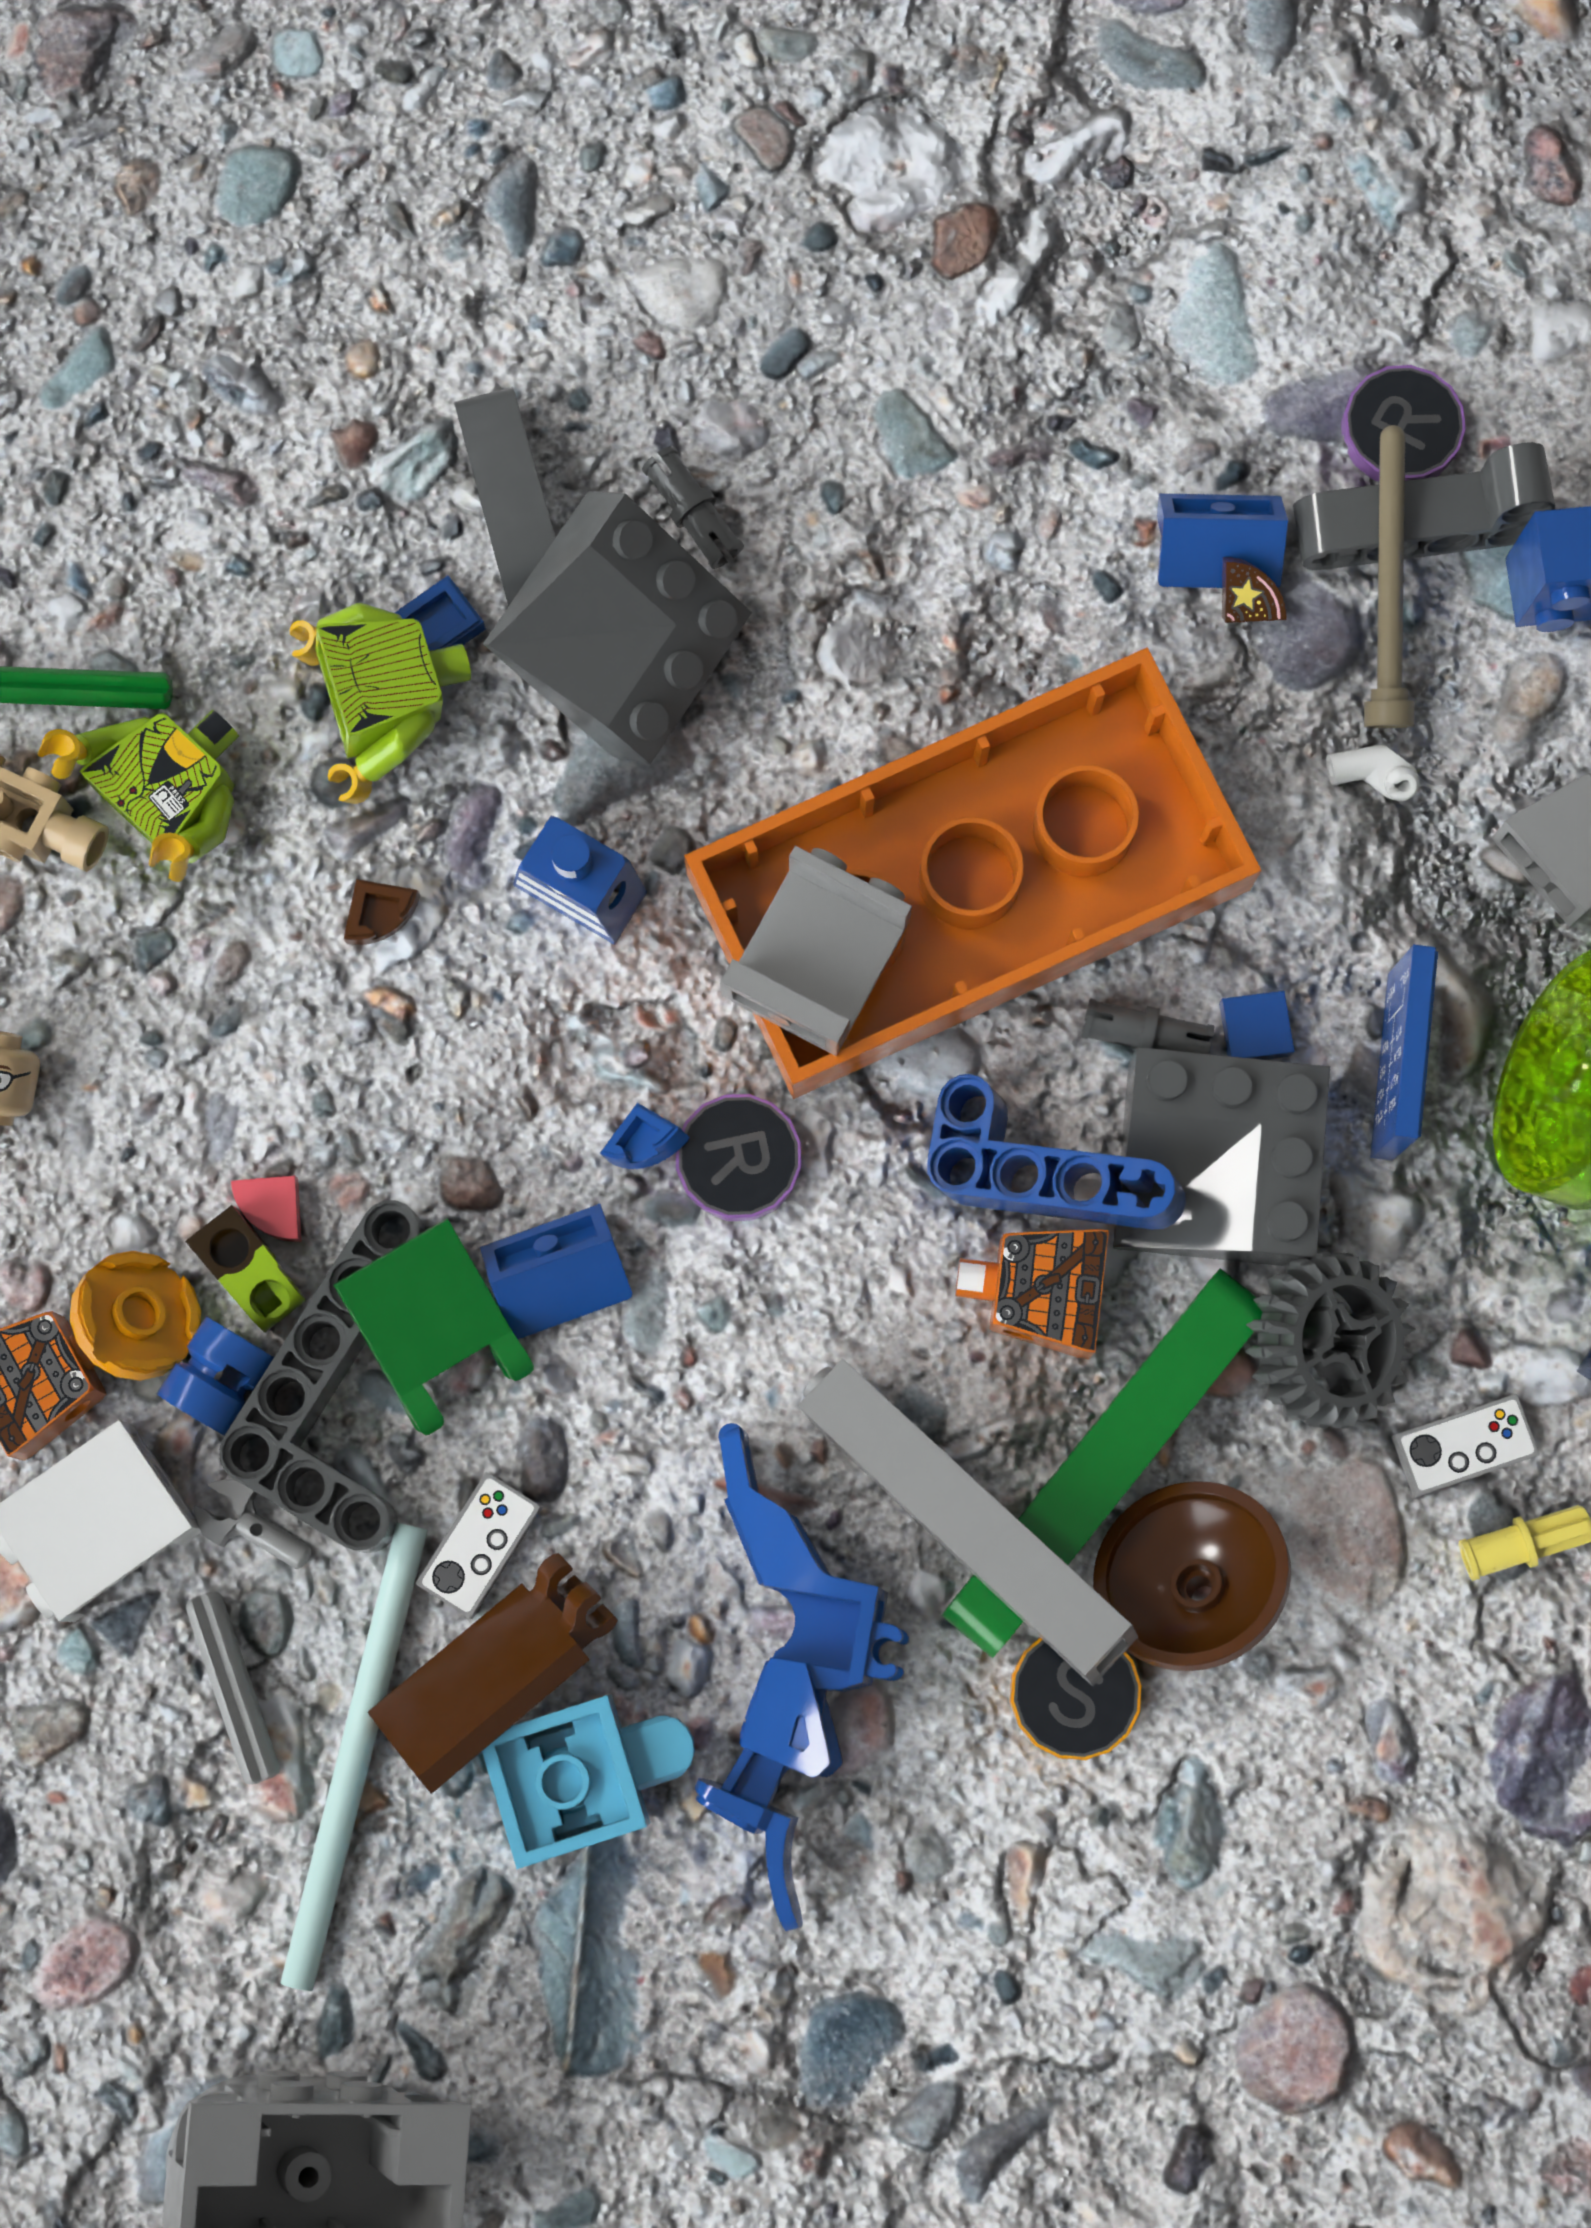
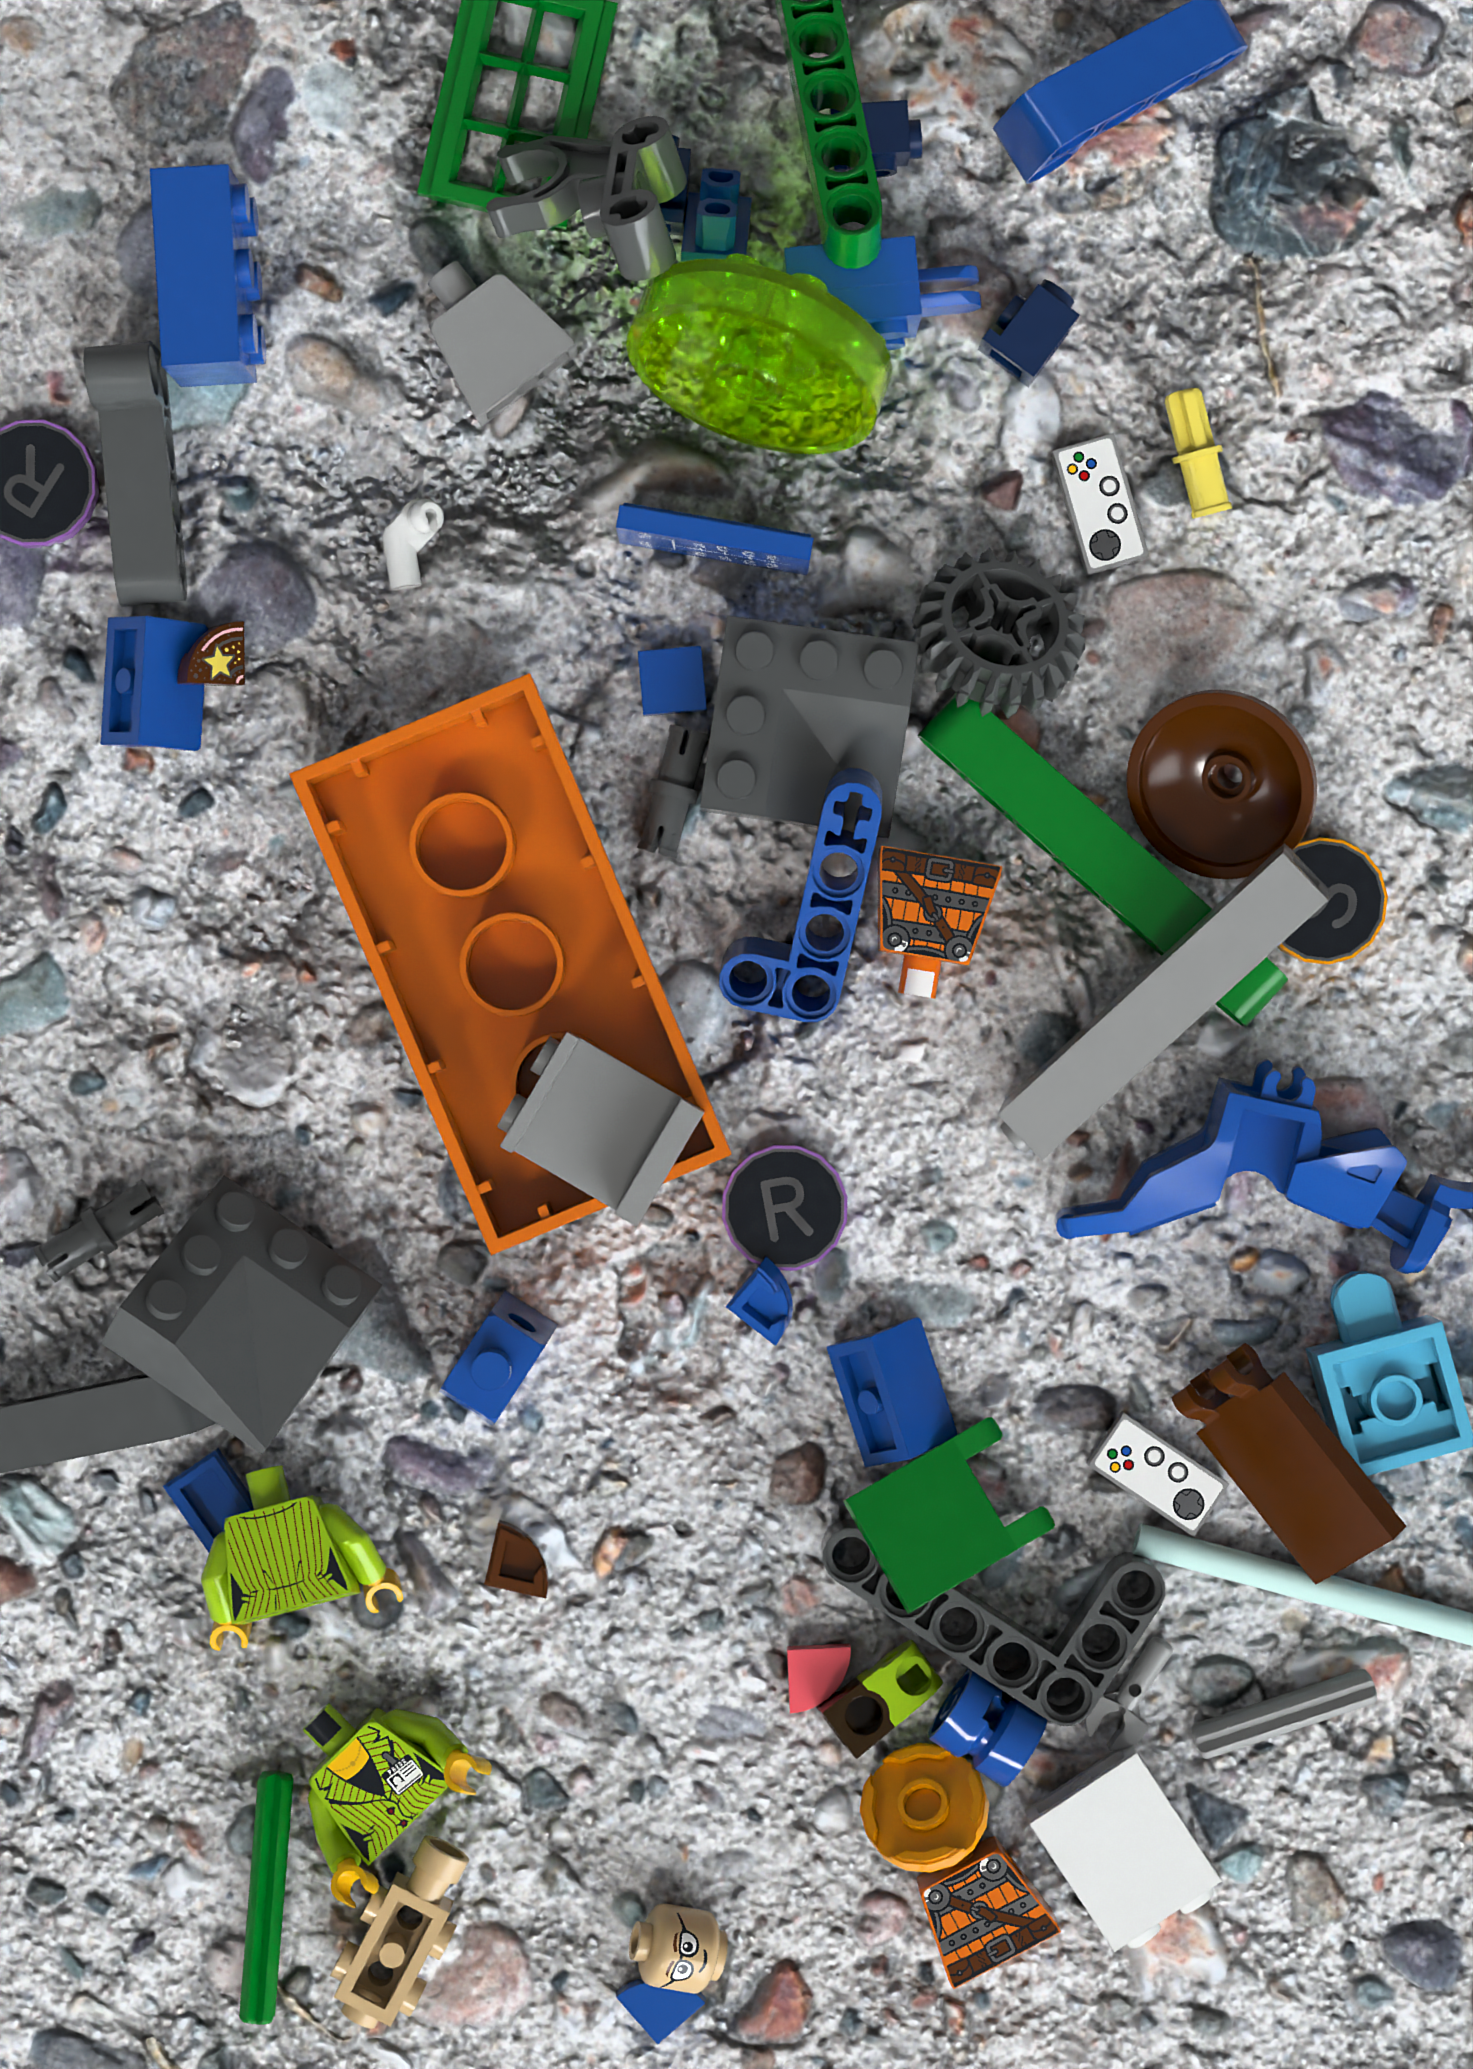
camera: 85 degrees left, 10 degrees up
(1390, 702) = (339, 522): dark tan piece -> none

